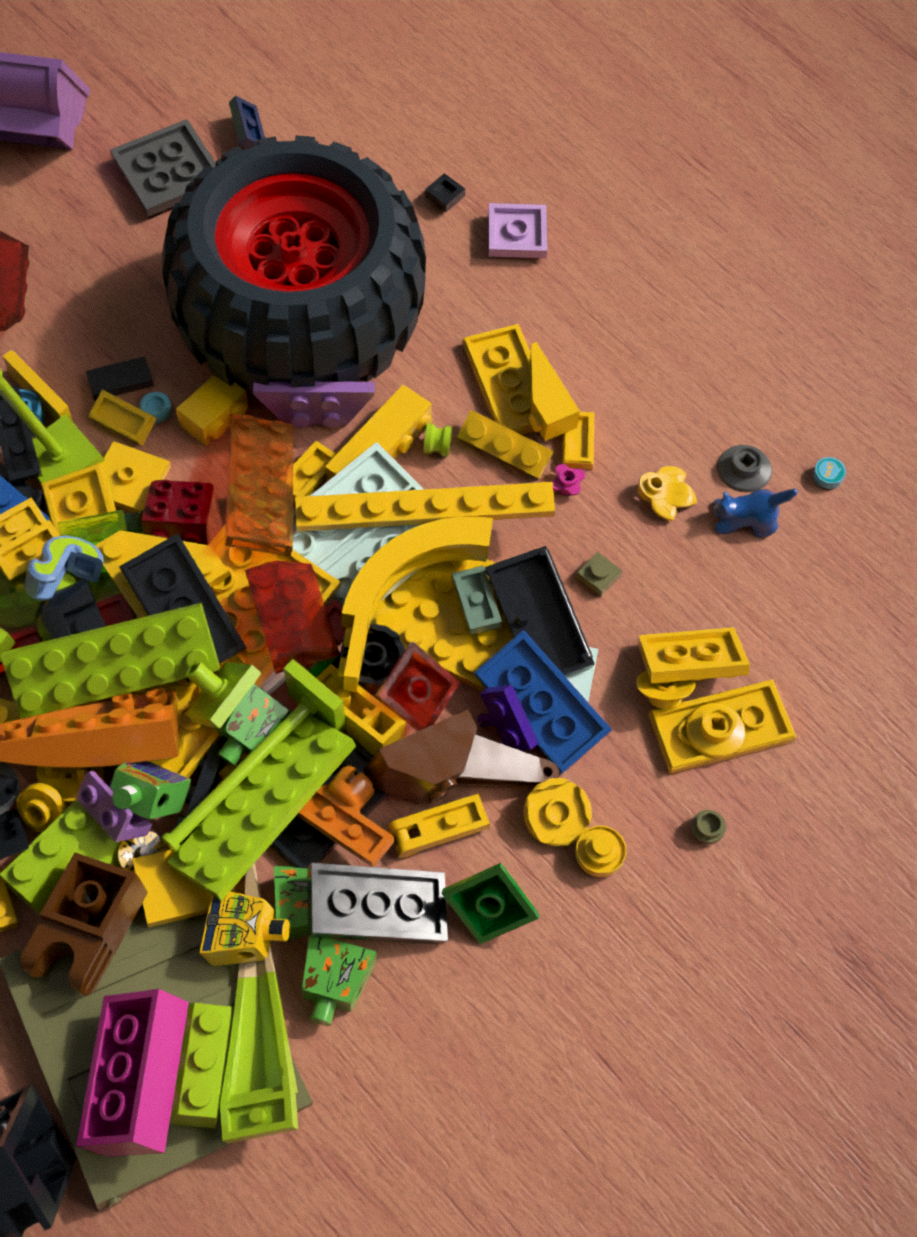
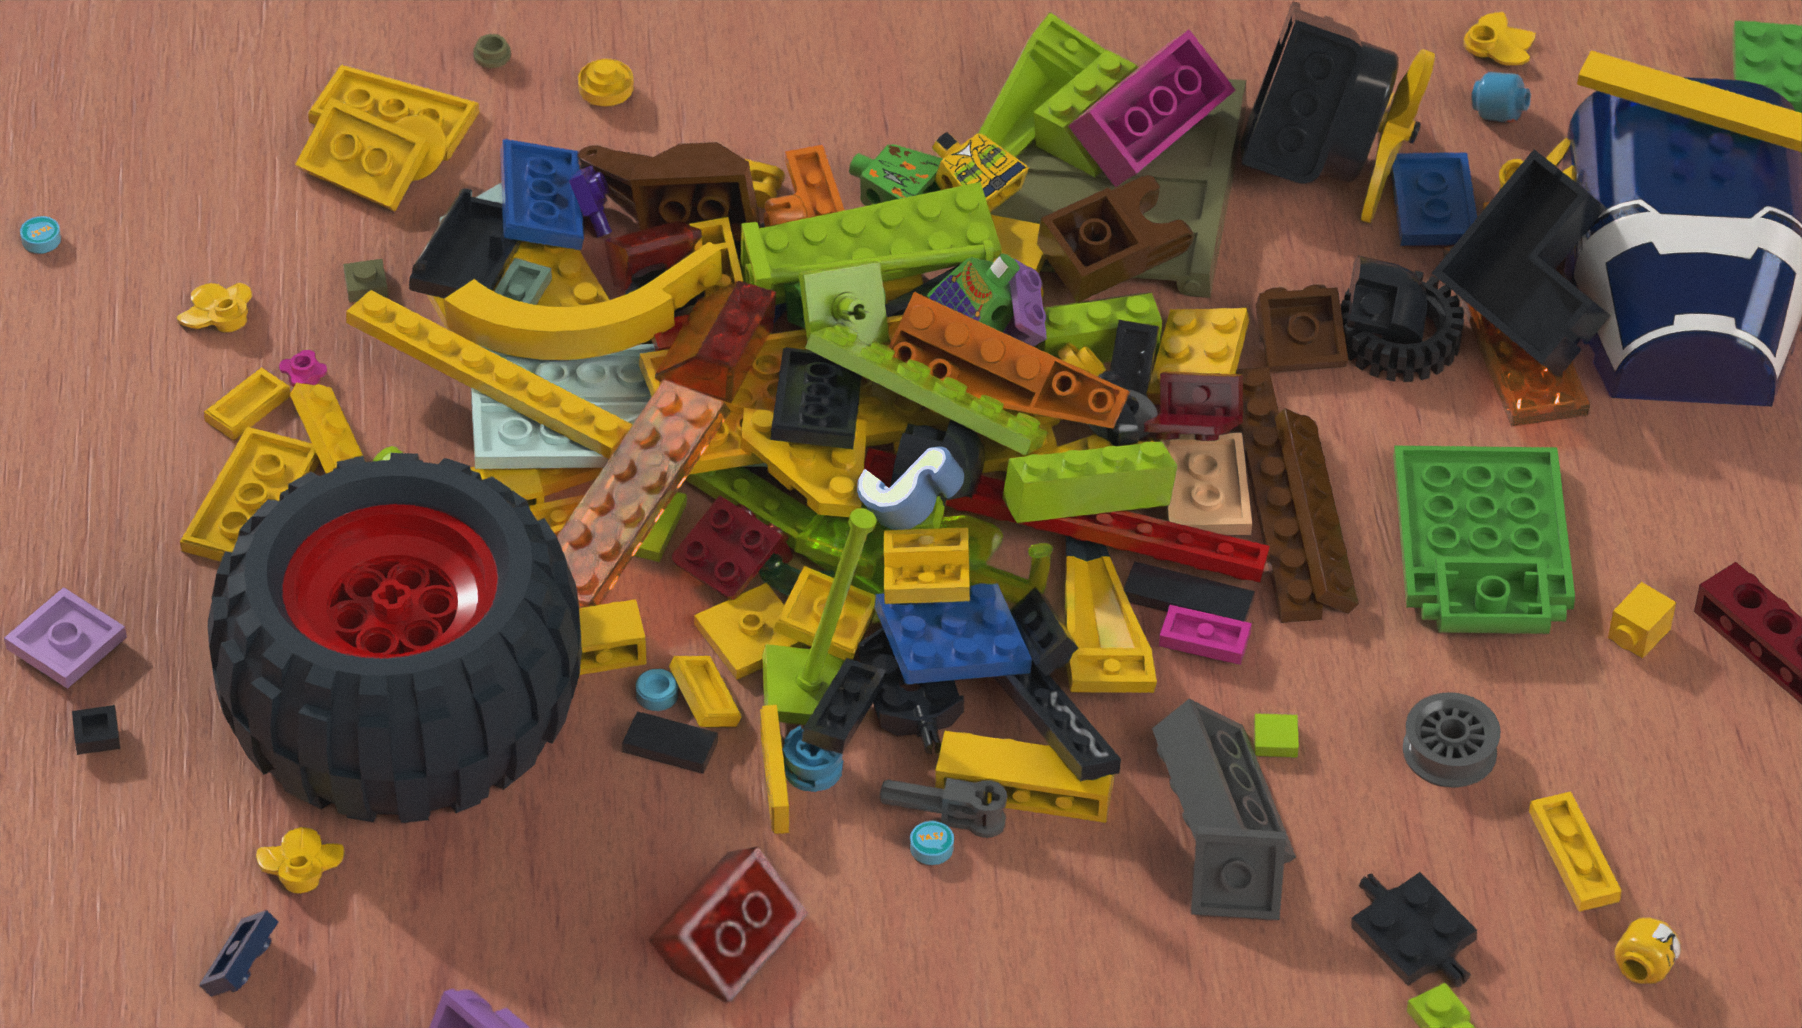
camera: 140 degrees left, 15 degrees down
(162, 165) = (386, 959): dark grey plate -> none
(335, 976) = (919, 118): bright green torso -> none
(376, 904) = (848, 131): plate -> none
(490, 903) = (740, 90): green slope -> none
(550, 403) = (245, 430): yellow slope -> none
(557, 812) = (614, 126): yellow tile -> none
(715, 742) = (405, 97): yellow piece -> none
(743, 478) = (111, 291): dark grey piece -> none
(754, 510) = (156, 235): blue animal -> none

